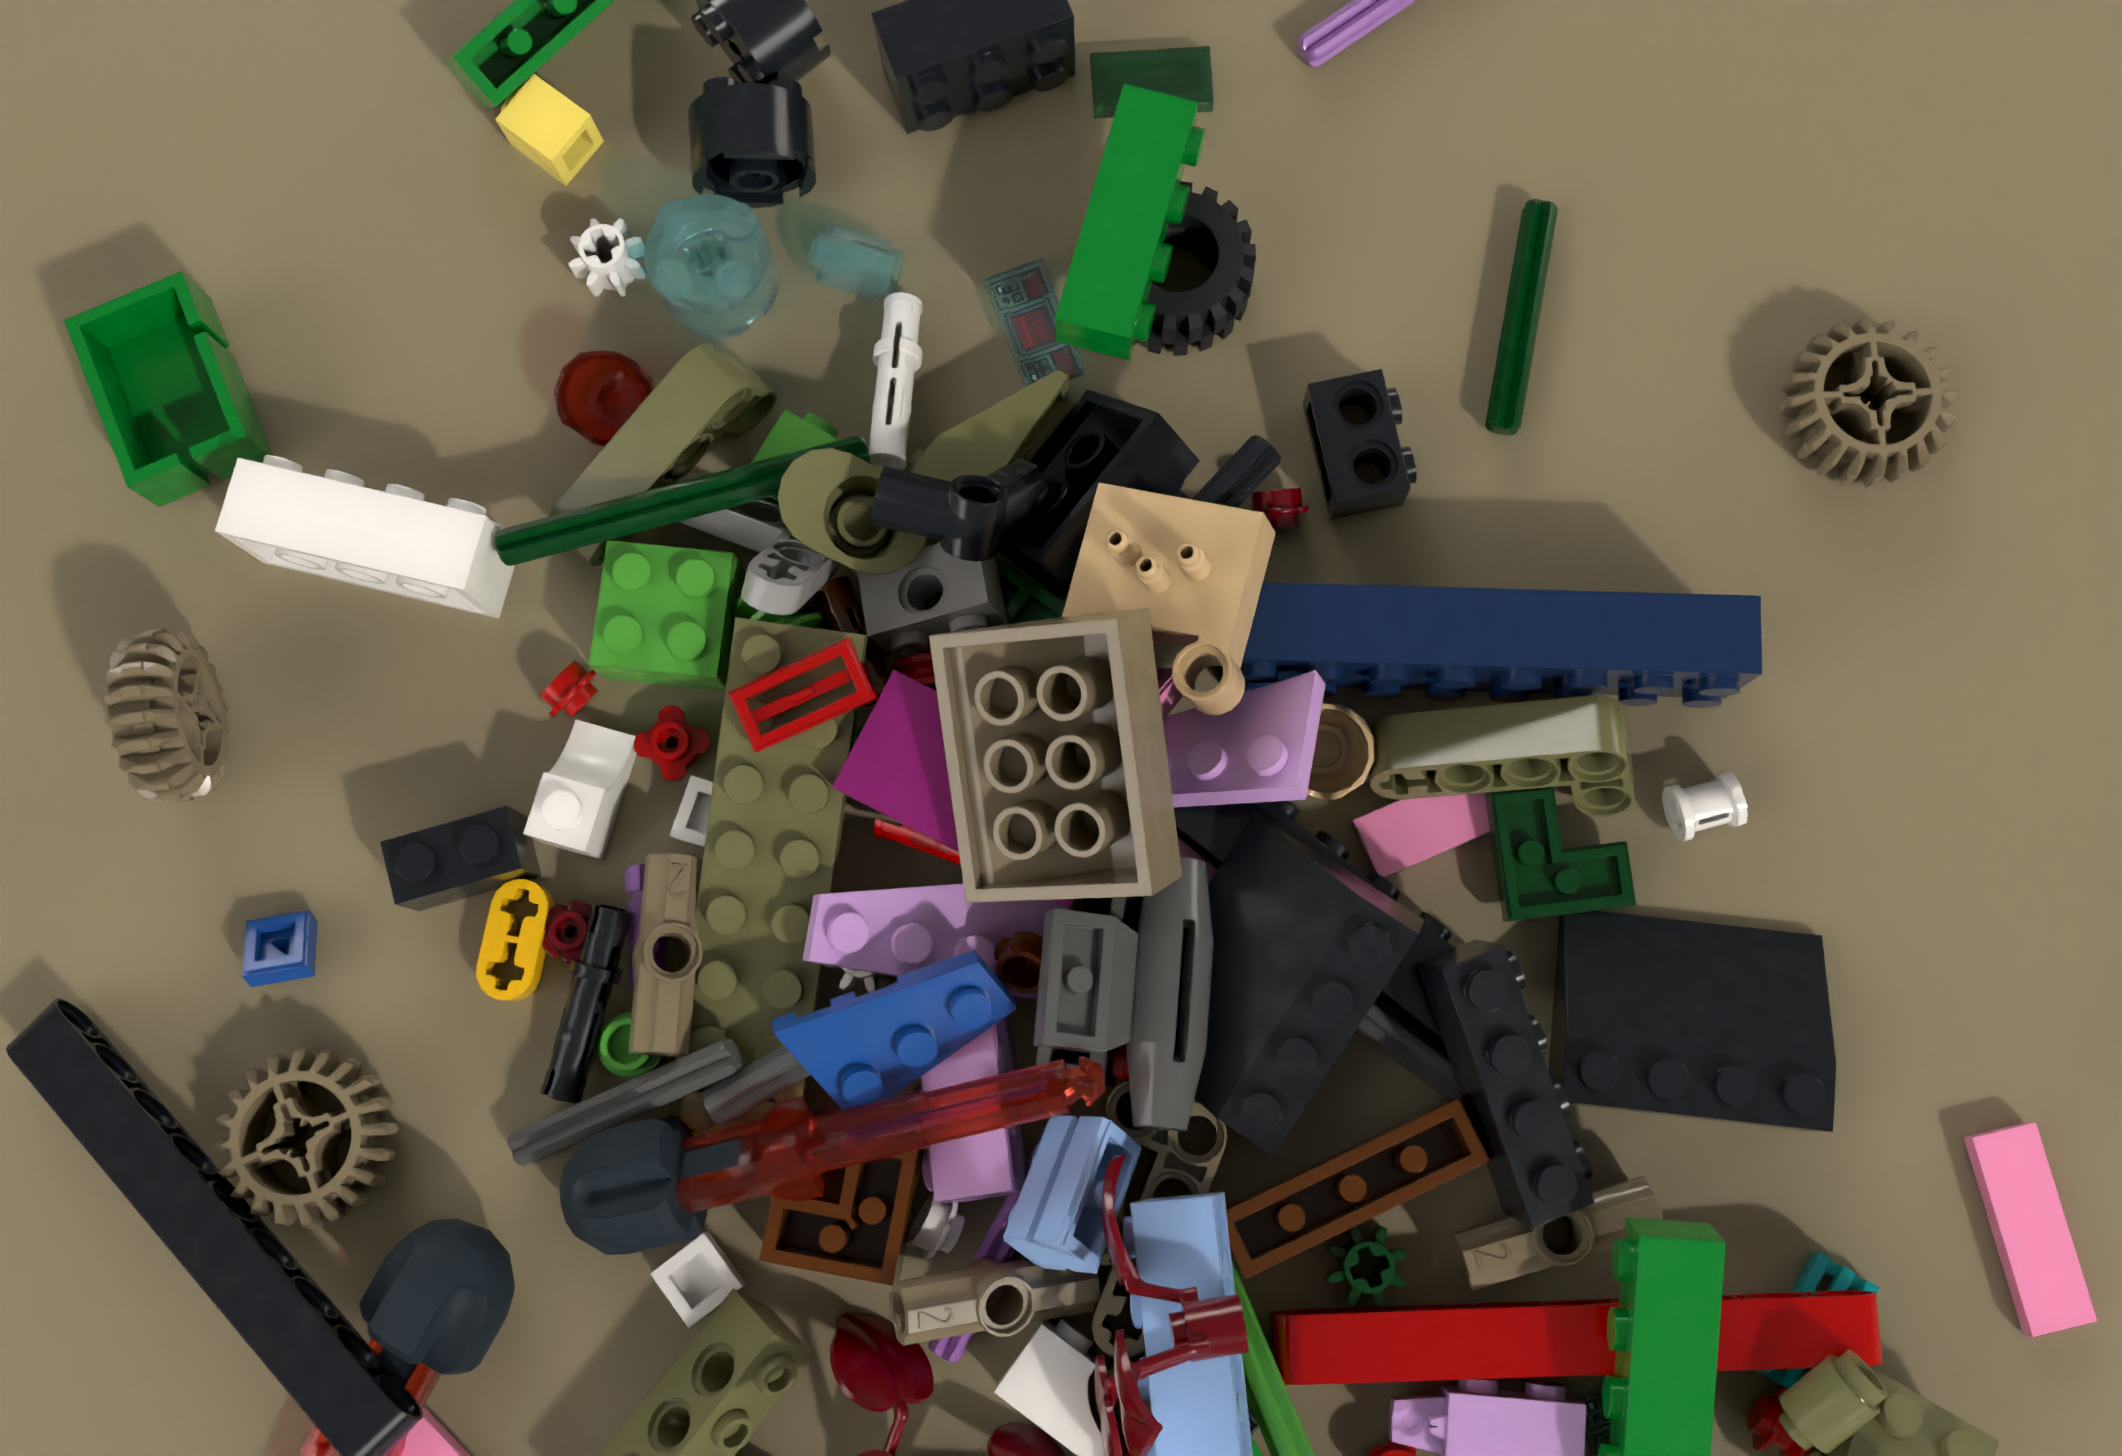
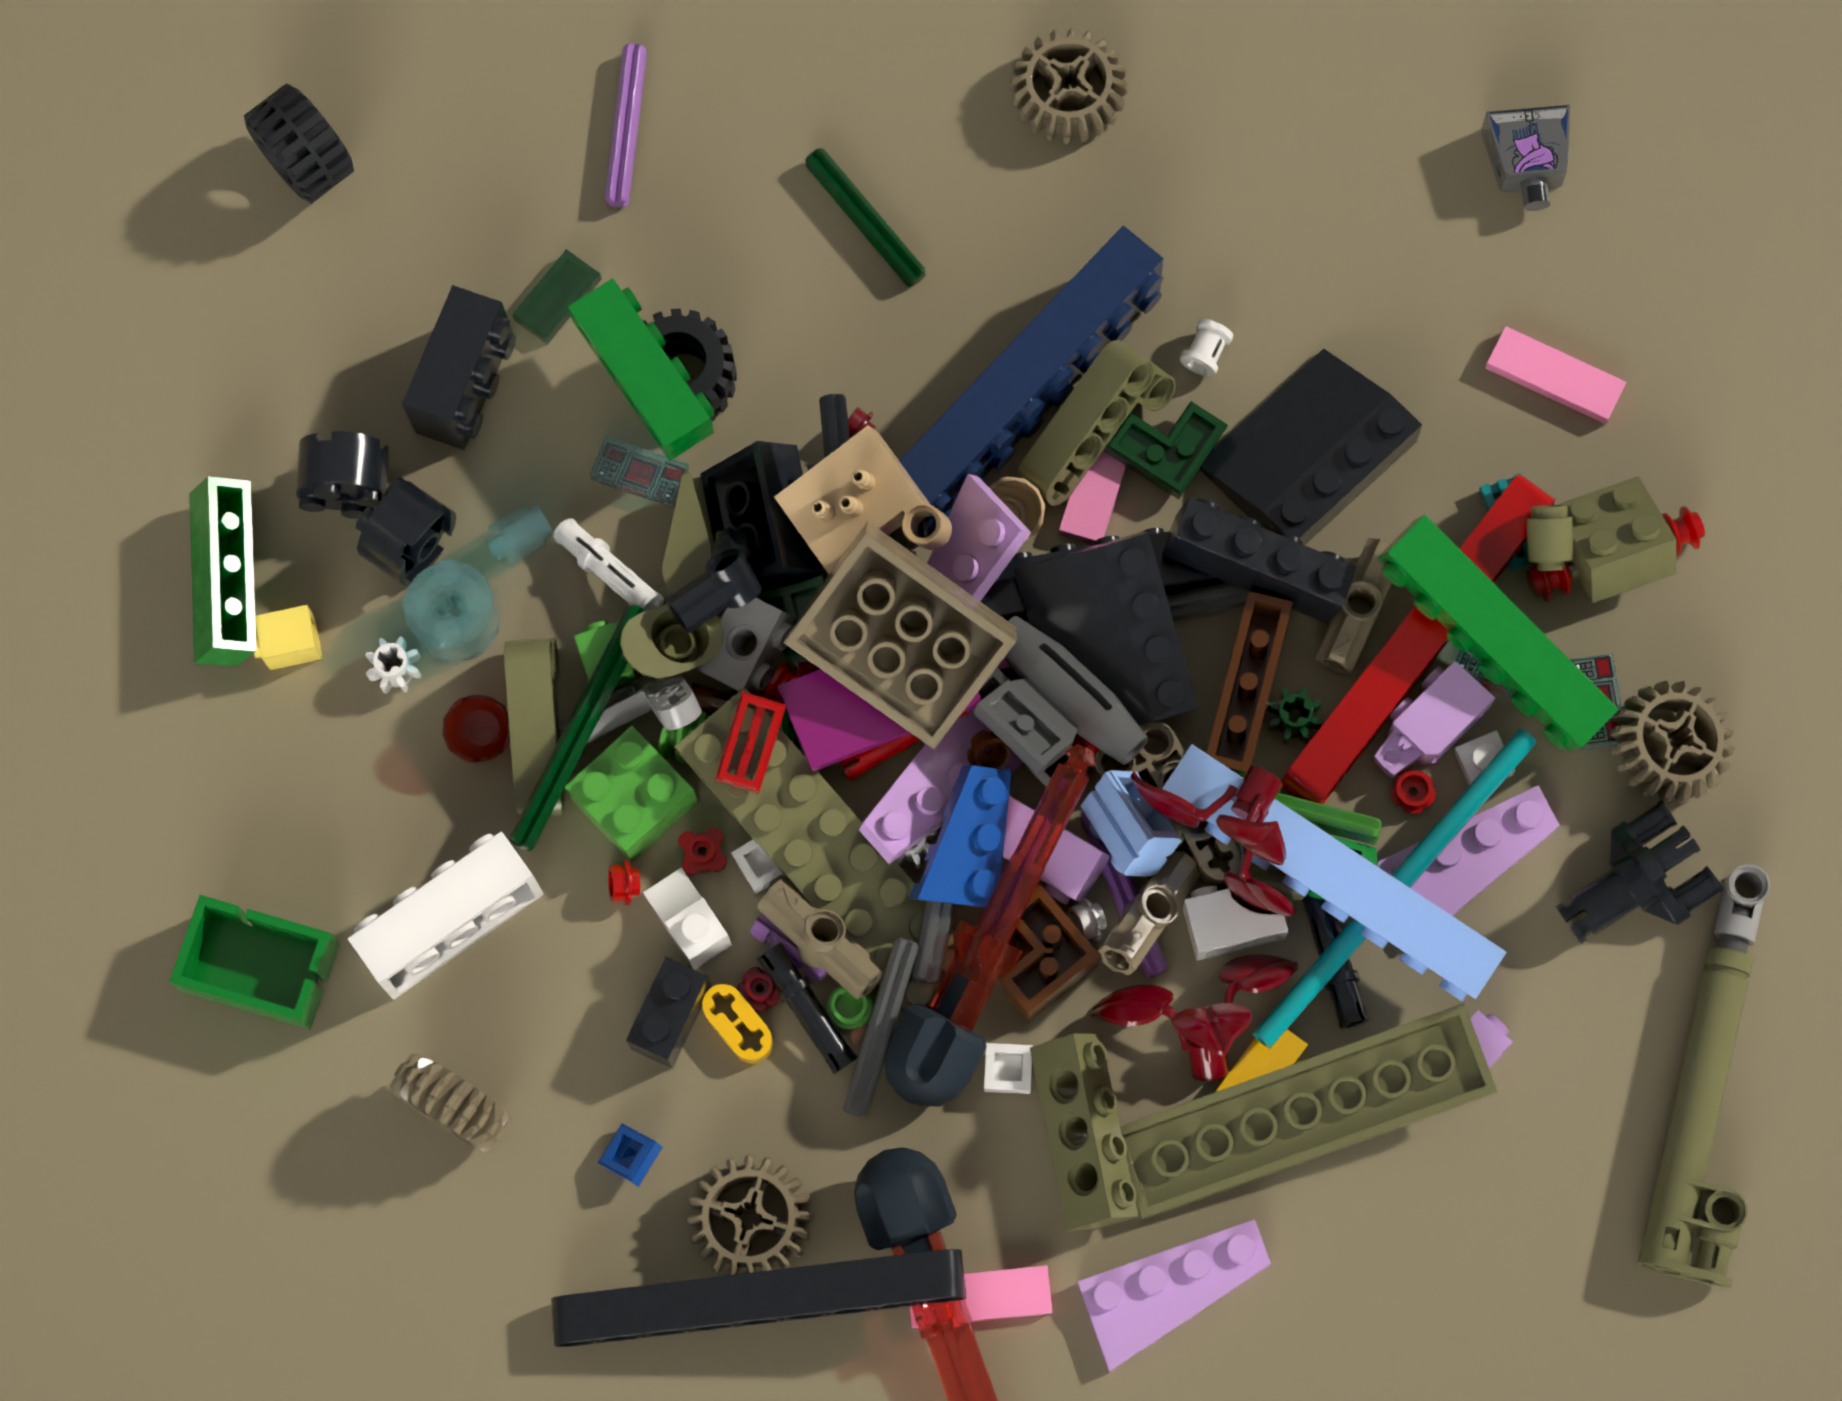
camera: 50 degrees left, 5 degrees down
(1343, 445) = (852, 367): black brick -> none

